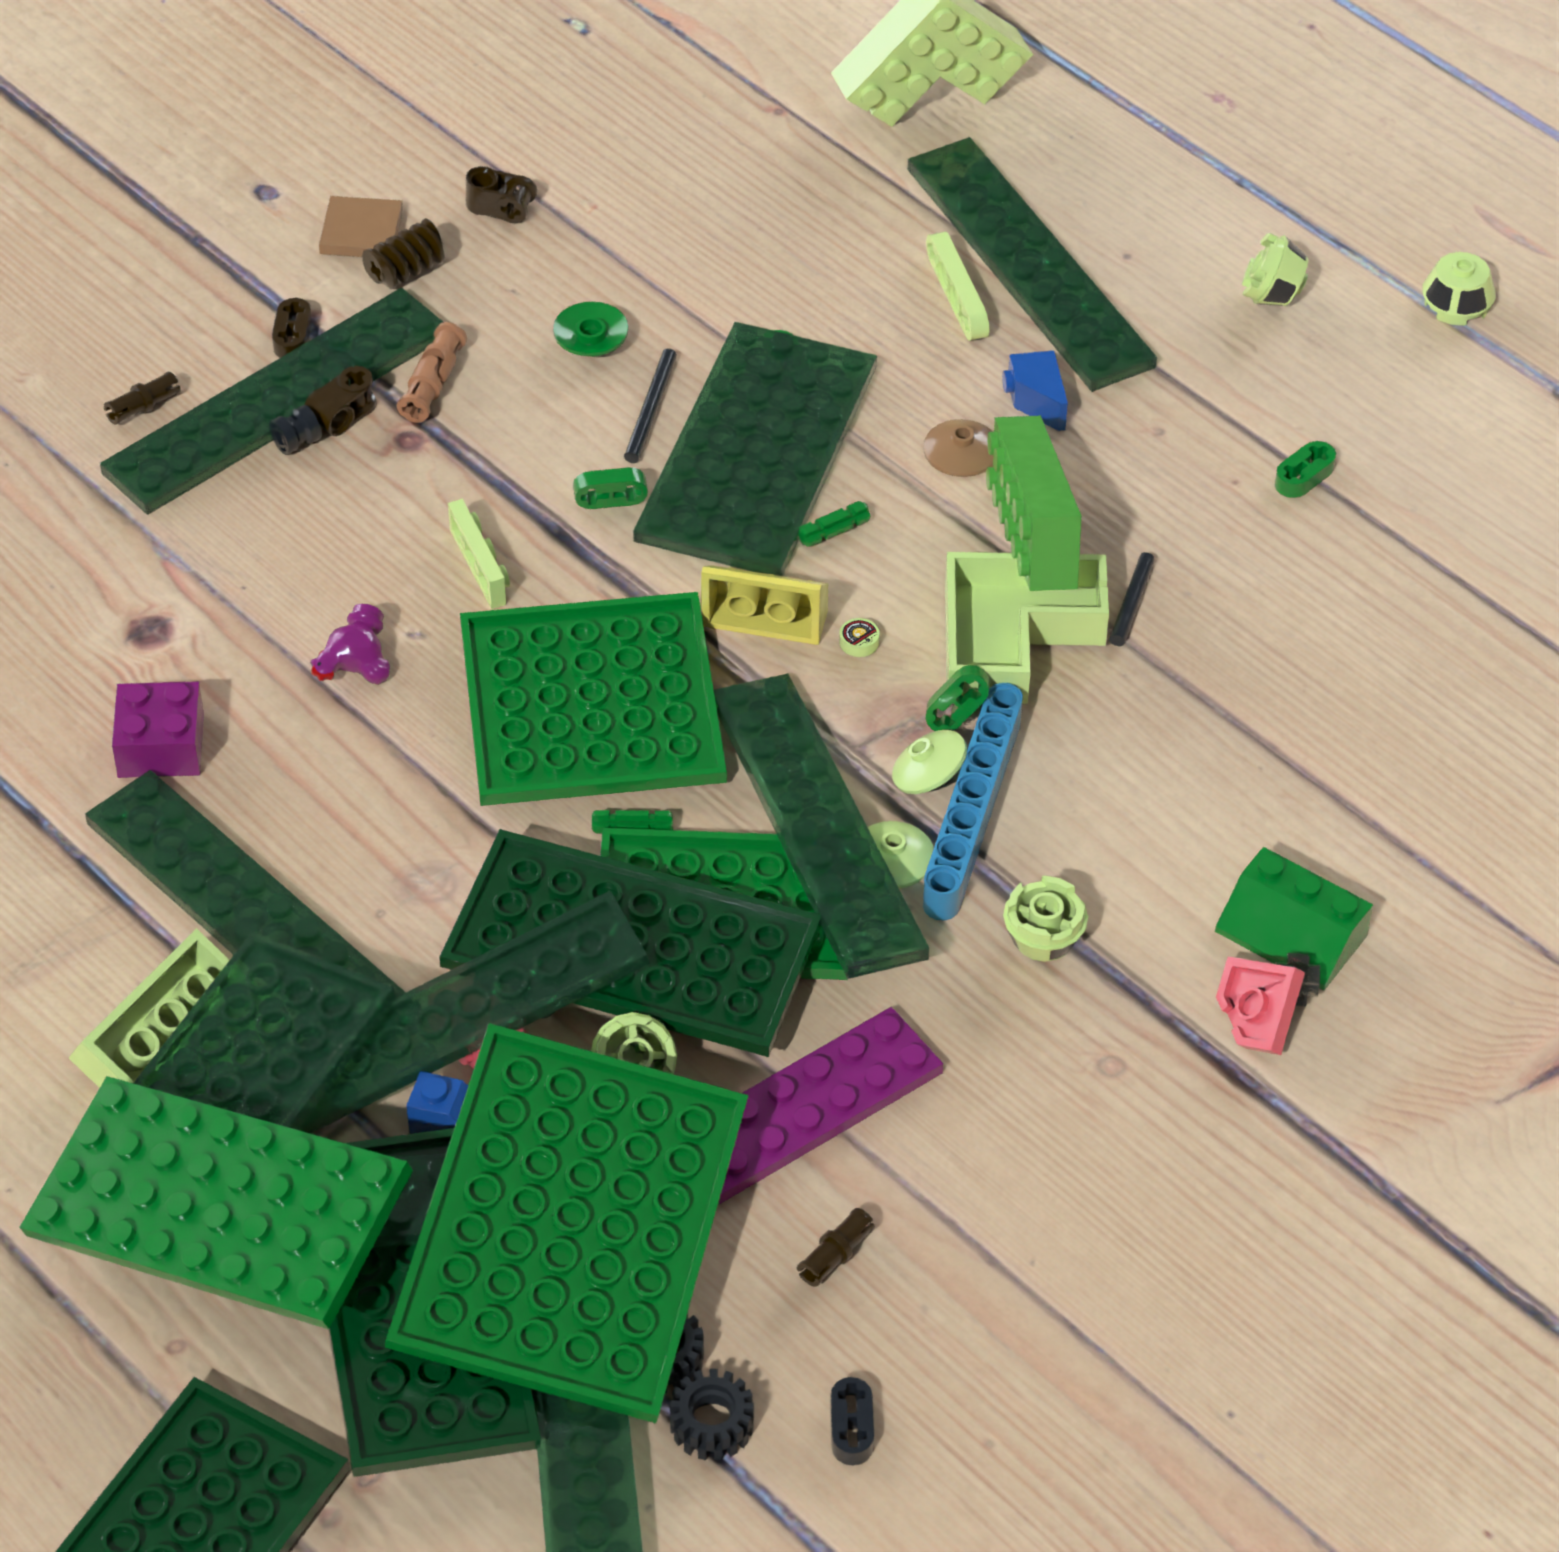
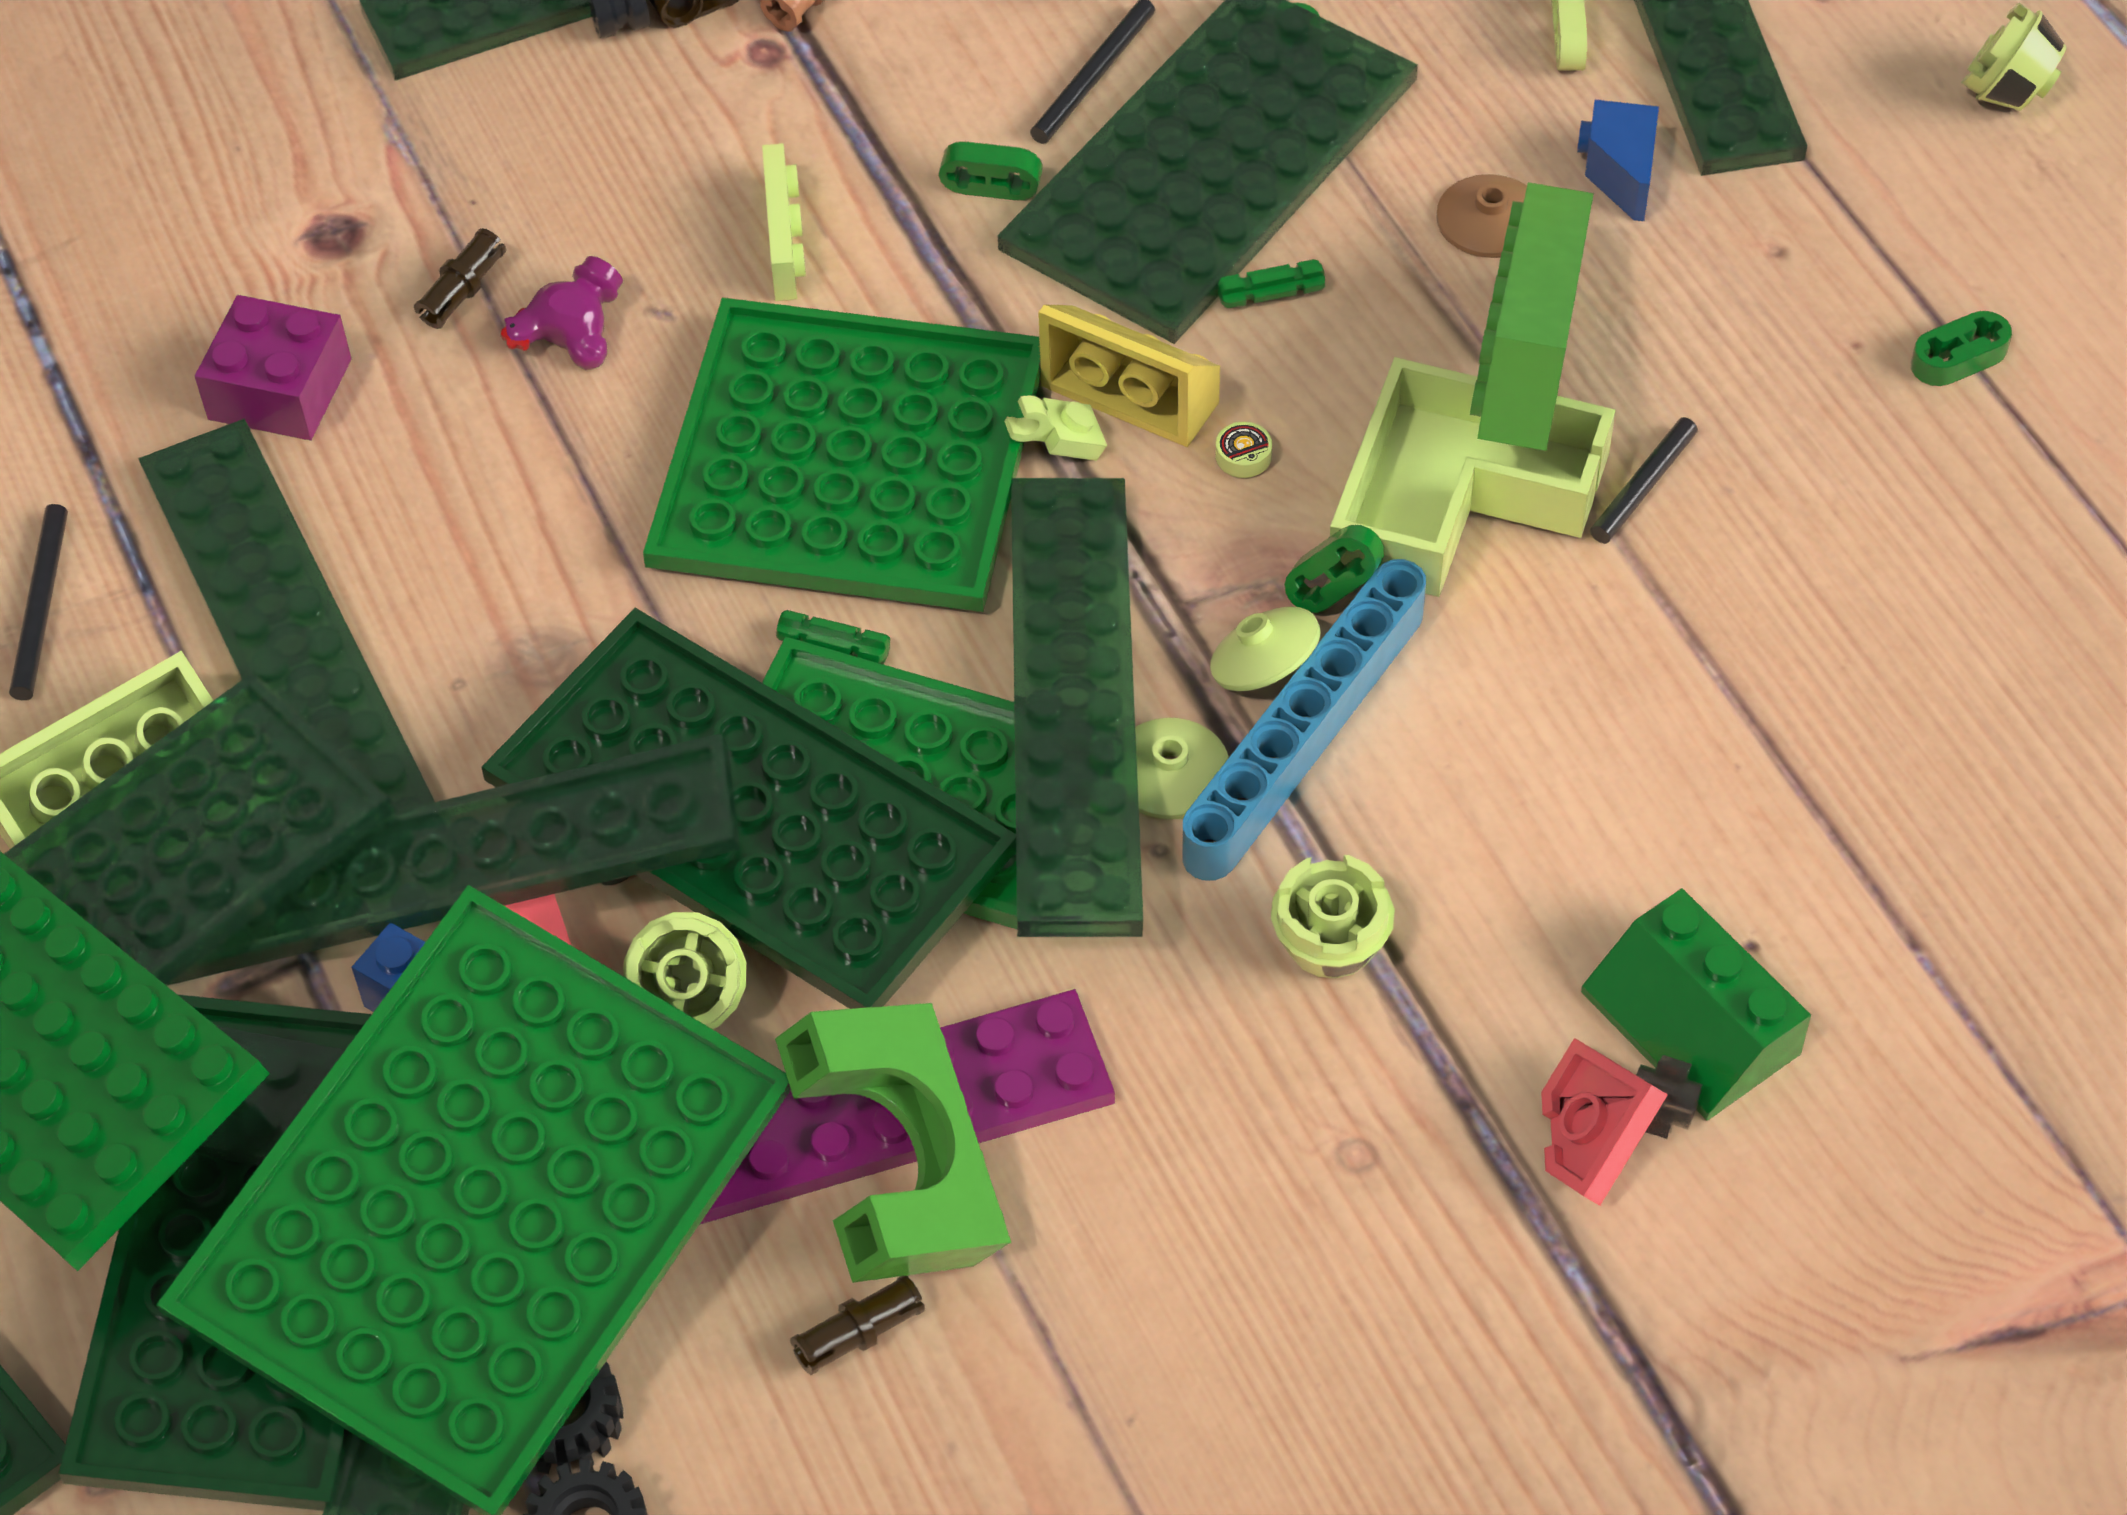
camera: 20 degrees right, 5 degrees up
(54, 927) = (38, 602): none -> black bar
(263, 641) = (459, 278): none -> dark brown pin
(734, 647) = (1063, 425): none -> yellowish green plate
(808, 1072) = (905, 1066): none -> bright green arch

